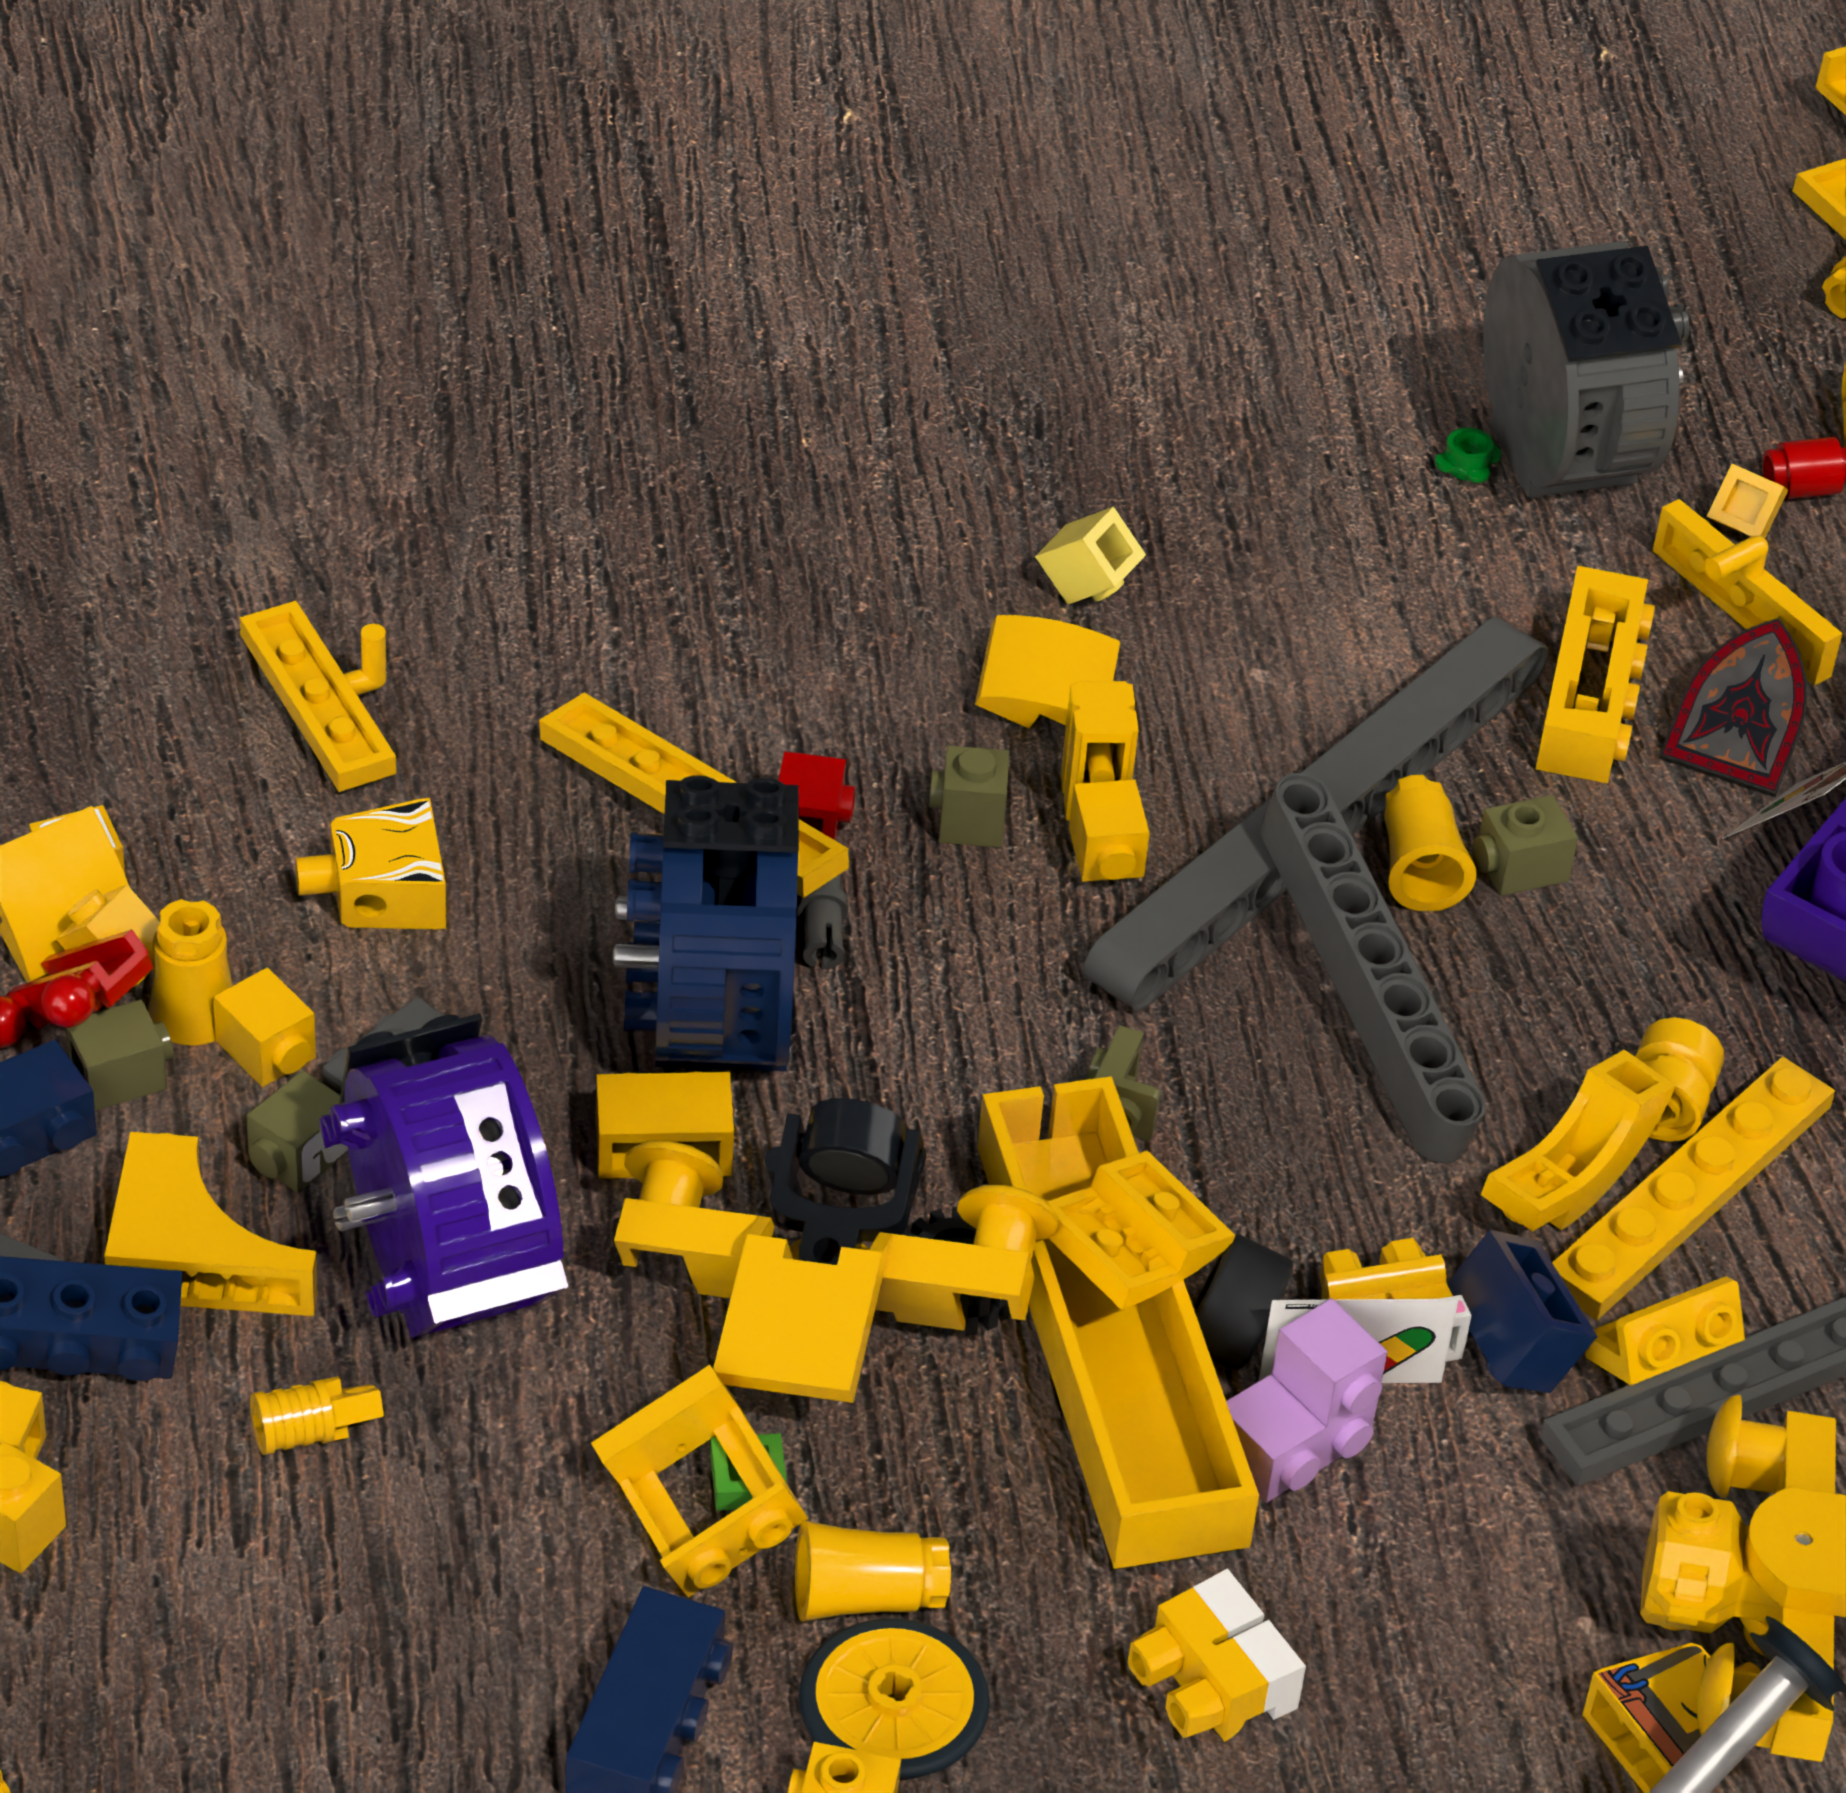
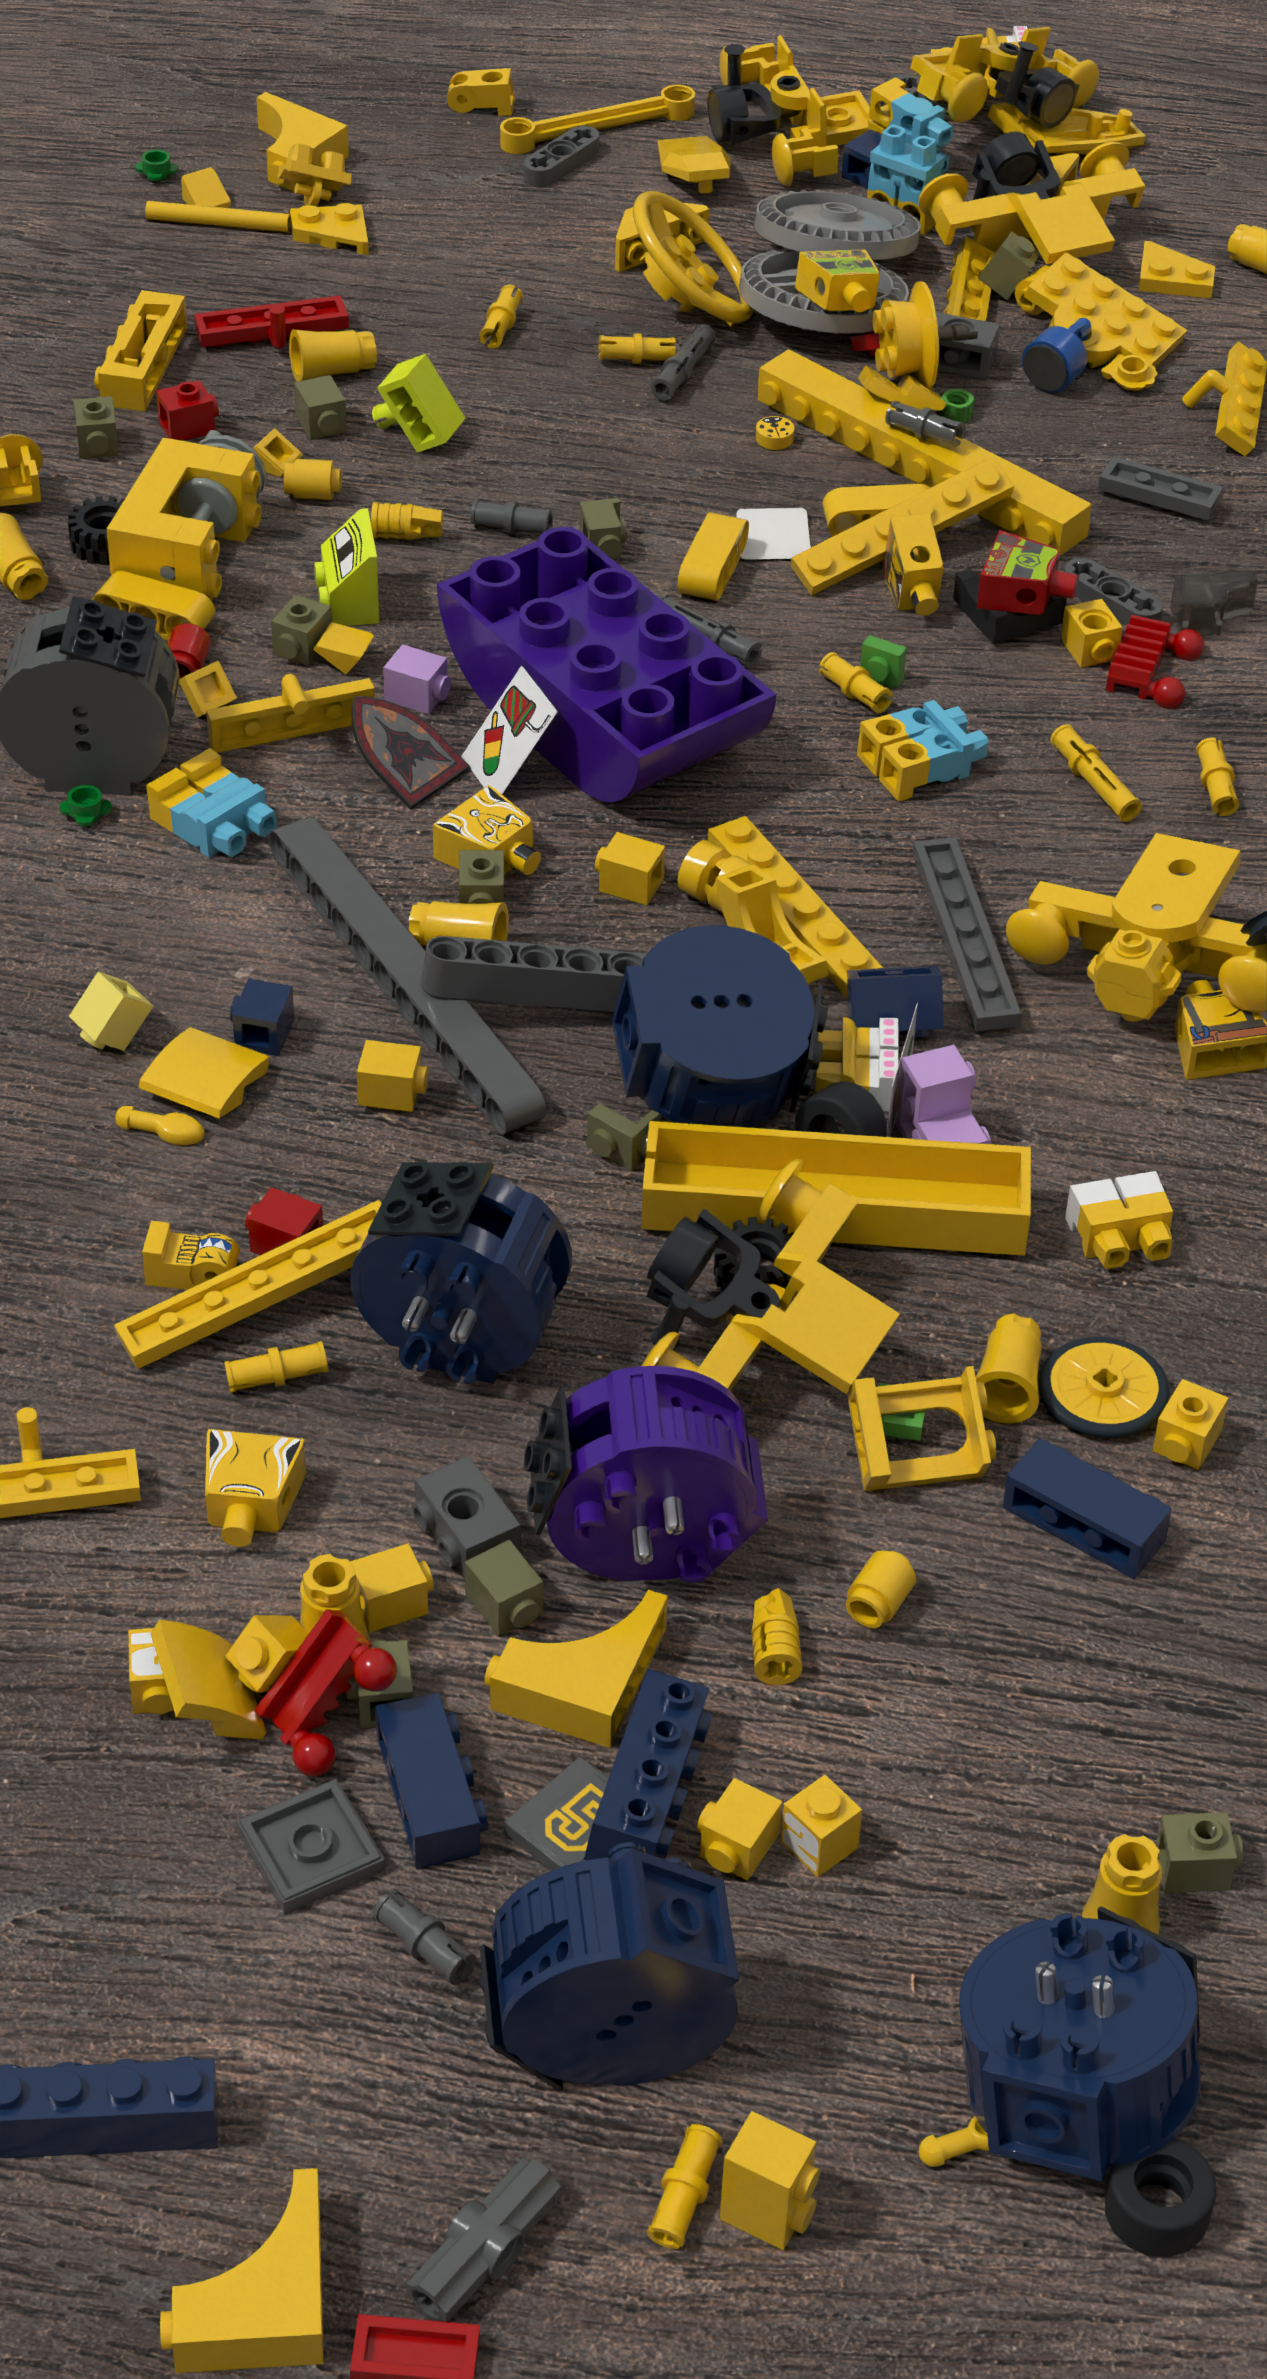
camera: 70 degrees left, 0 degrees up
(425, 1502) = (880, 1588): none -> yellow brick
(582, 851) = (276, 1366): none -> yellow pin
(666, 1107) = (568, 1361): yellow brick -> none
(721, 723) = (185, 1259): none -> yellow leg
(948, 675) = (172, 1128): none -> yellow piece
(971, 795) = (321, 1137): olive brick -> none
(1098, 735) = (321, 1054): yellow brick -> none
(1137, 1230) = (801, 1130): yellow slope -> none
(1170, 696) = (262, 1016): none -> dark blue brick
(1302, 1098) = (717, 1028): none -> dark blue piece
(1521, 564) = (210, 805): none -> medium azure hips
(1582, 739) = (340, 806): yellow brick -> none
(1628, 830) = (487, 823): none -> yellow torso
(1647, 985) = (630, 868): none -> yellow brick
(1670, 1332) = (925, 938): yellow bracket -> none

